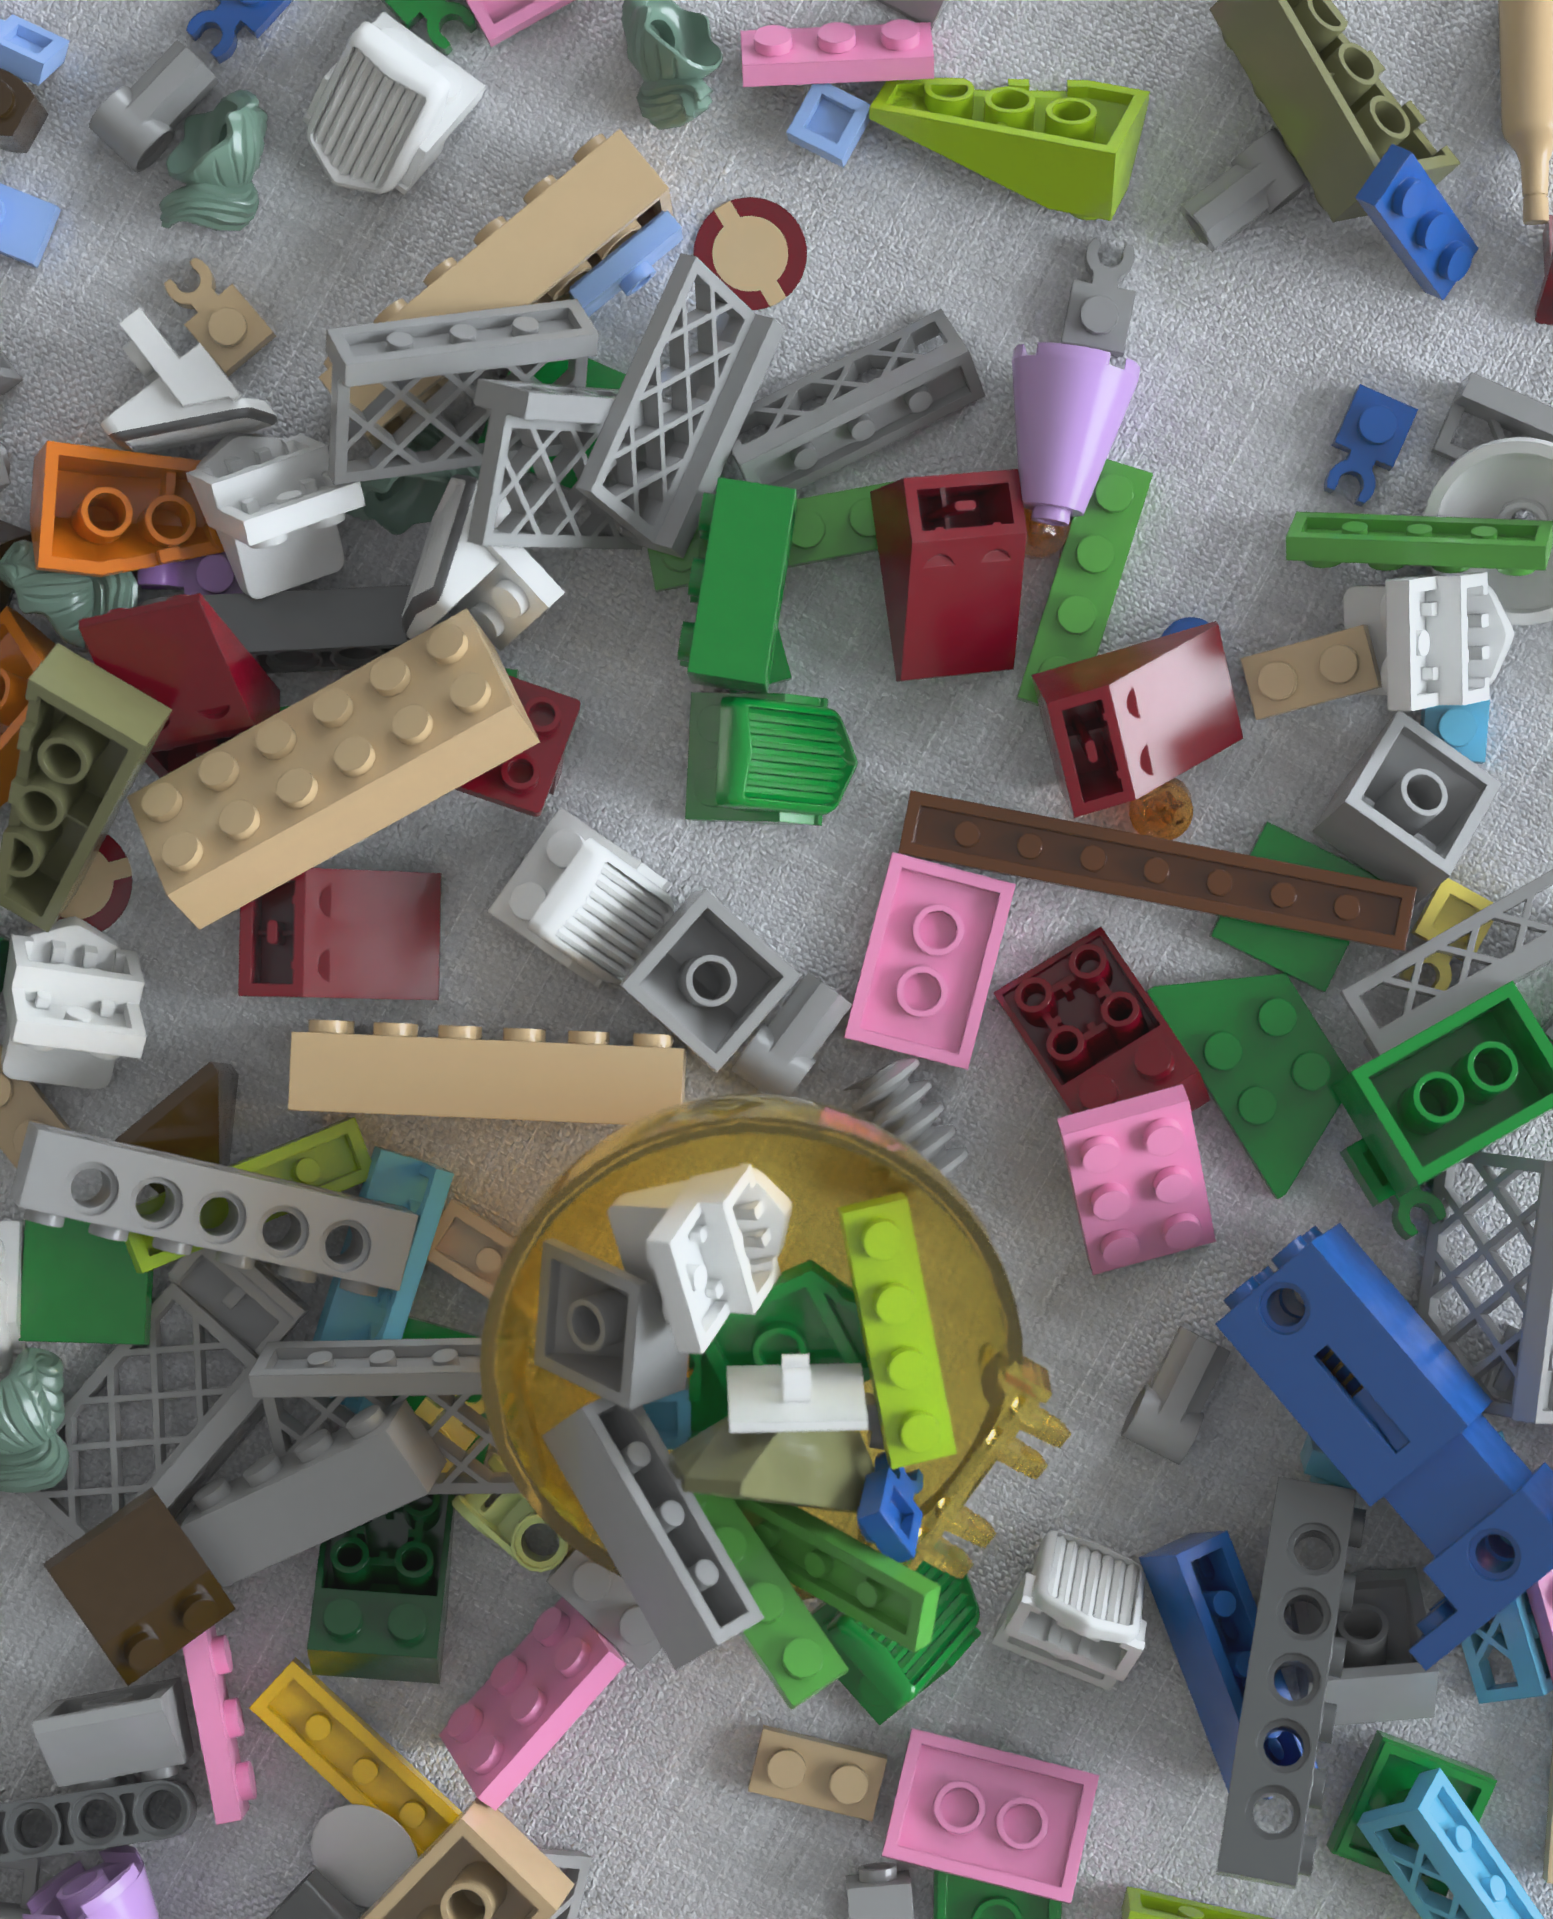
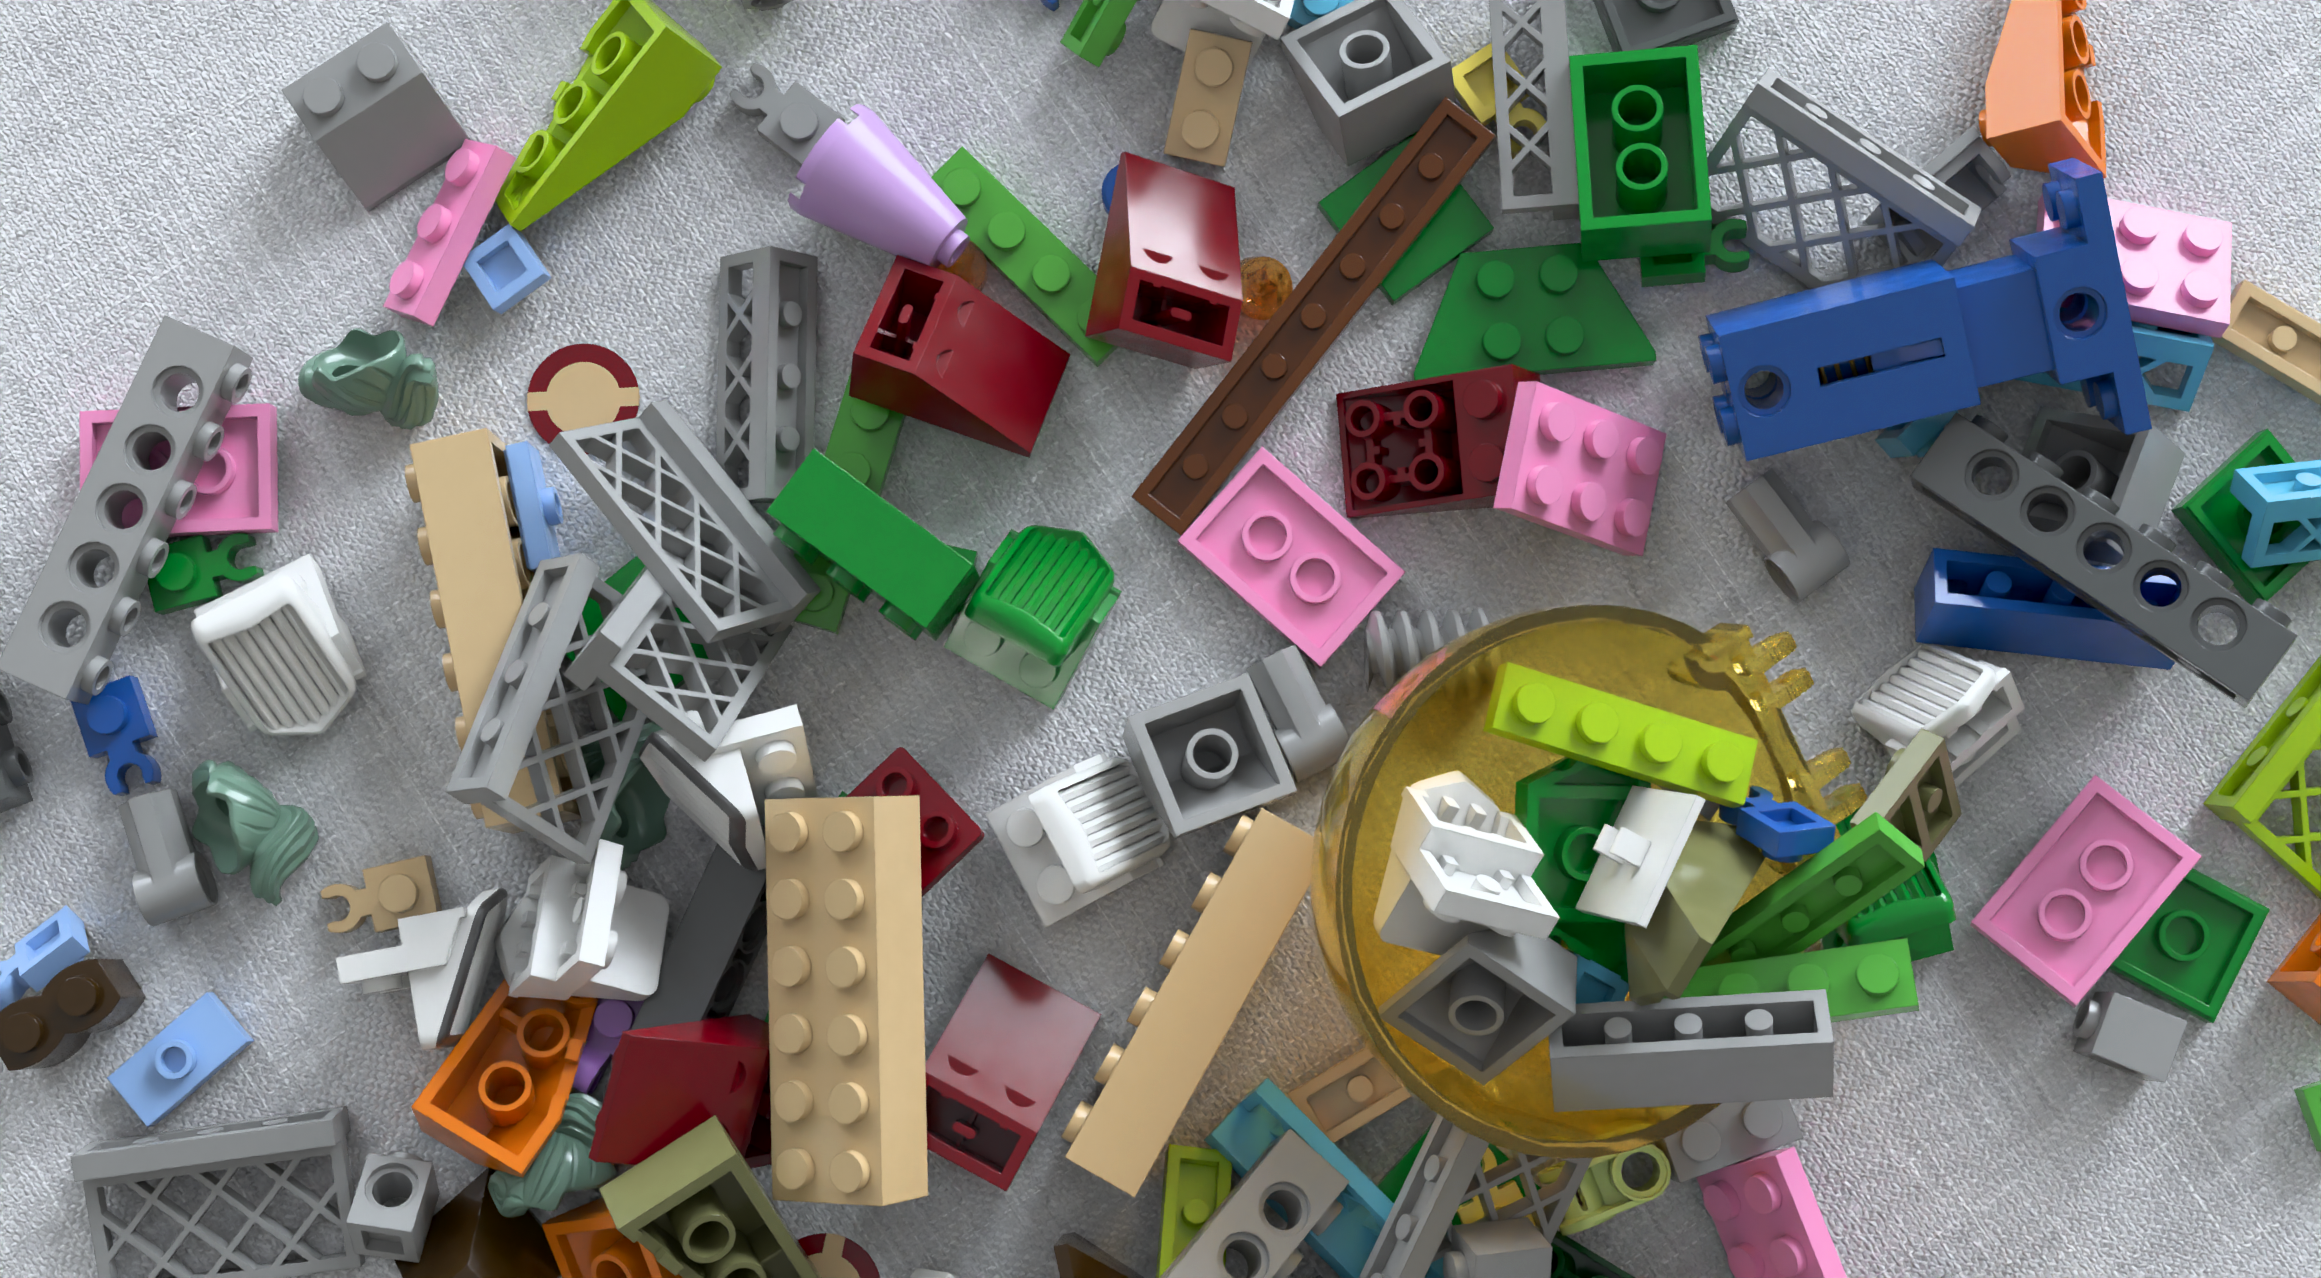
camera: 65 degrees left, 5 degrees down
(817, 1773) = (1969, 1028): tan plate -> none
(983, 1620) = (1917, 793): none -> olive wing

